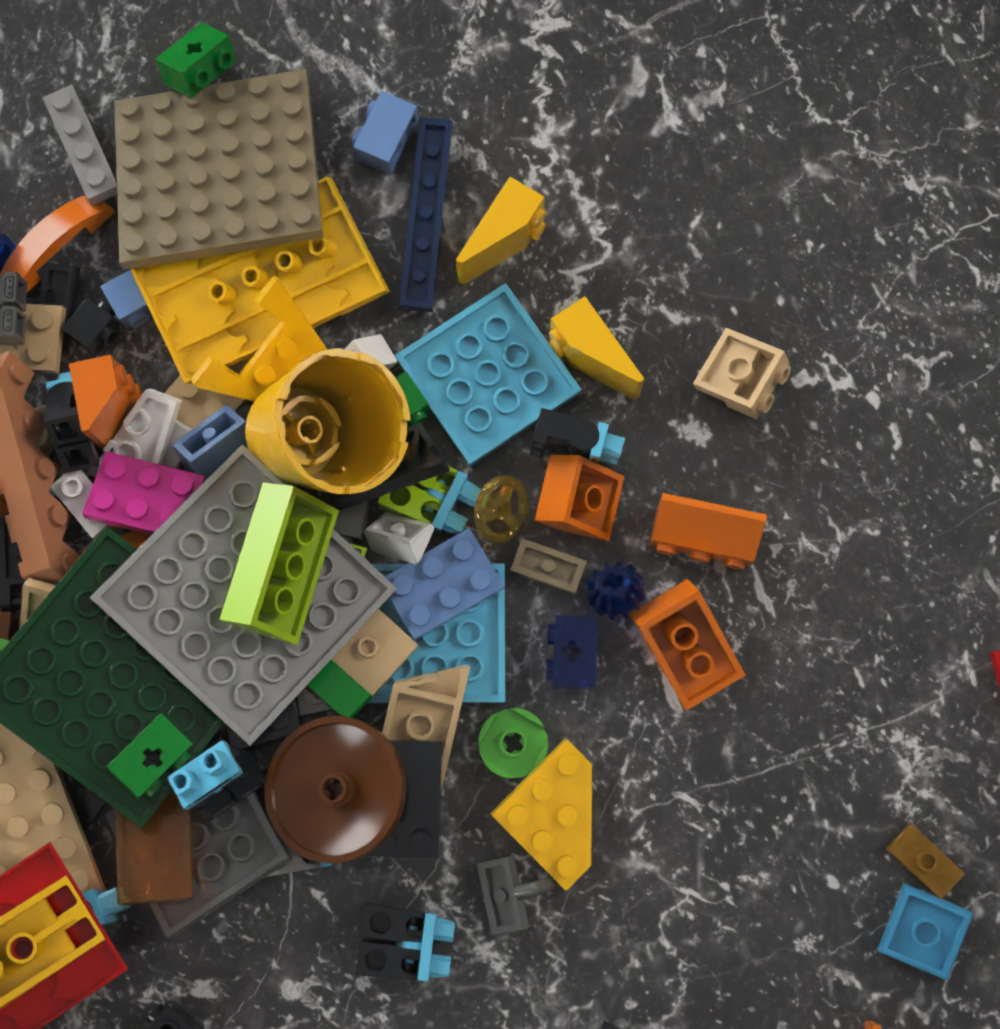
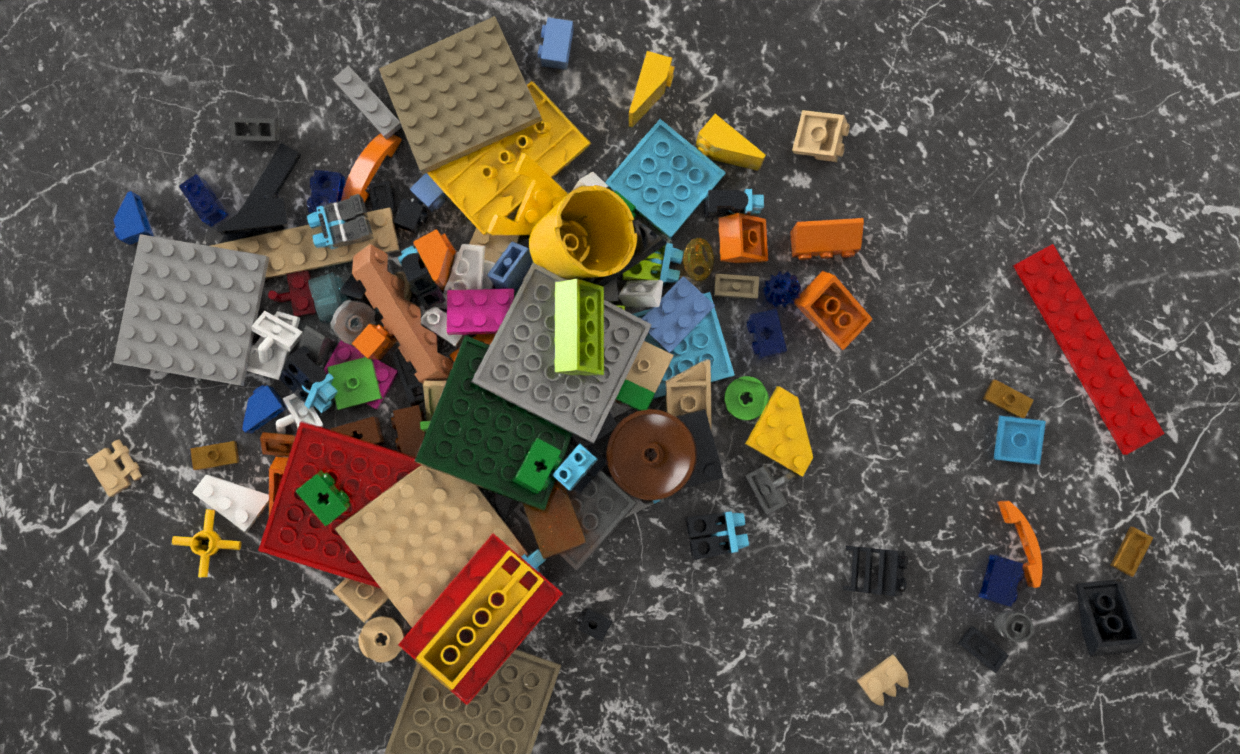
camera: 20 degrees left, 5 degrees up
(196, 60) = (424, 28): green brick -> none
(426, 215) = (597, 89): dark blue plate -> none

